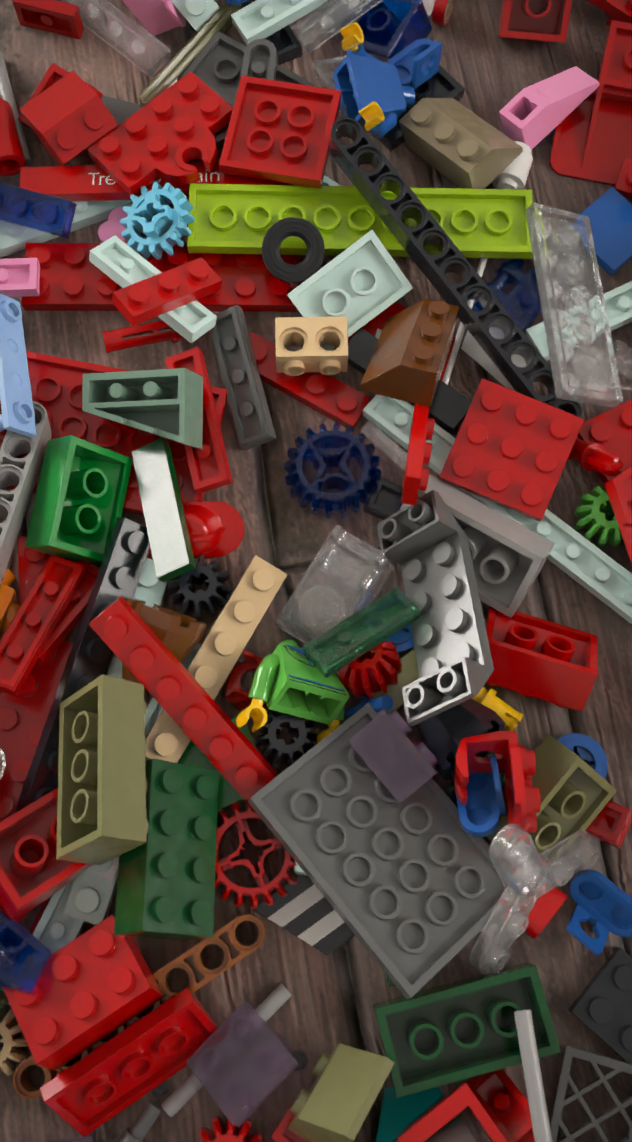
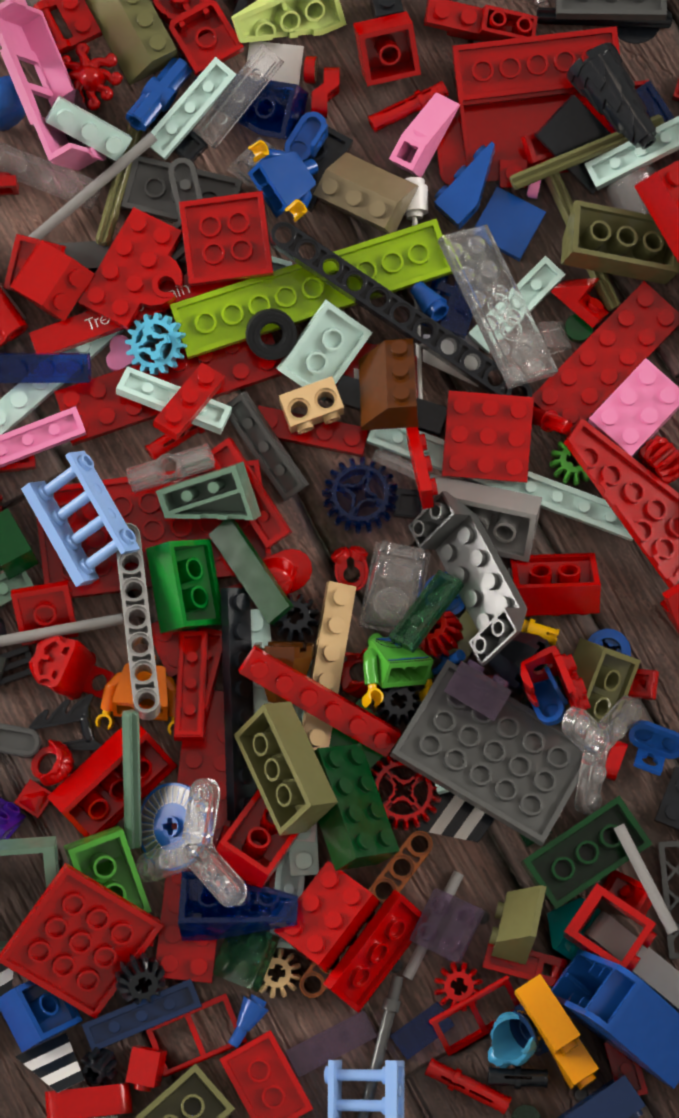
camera: 20 degrees left, 5 degrees up
(99, 358) = (154, 474): none -> clear piece
(163, 45) = (94, 186): none -> light grey piece
(305, 542) = (340, 558): none -> red piece
(454, 32) = (326, 91): none -> red piece
(494, 275) = (429, 301): none -> blue cone
(521, 78) = (405, 107): none -> red pin
(574, 178) = (465, 193): none -> blue slope

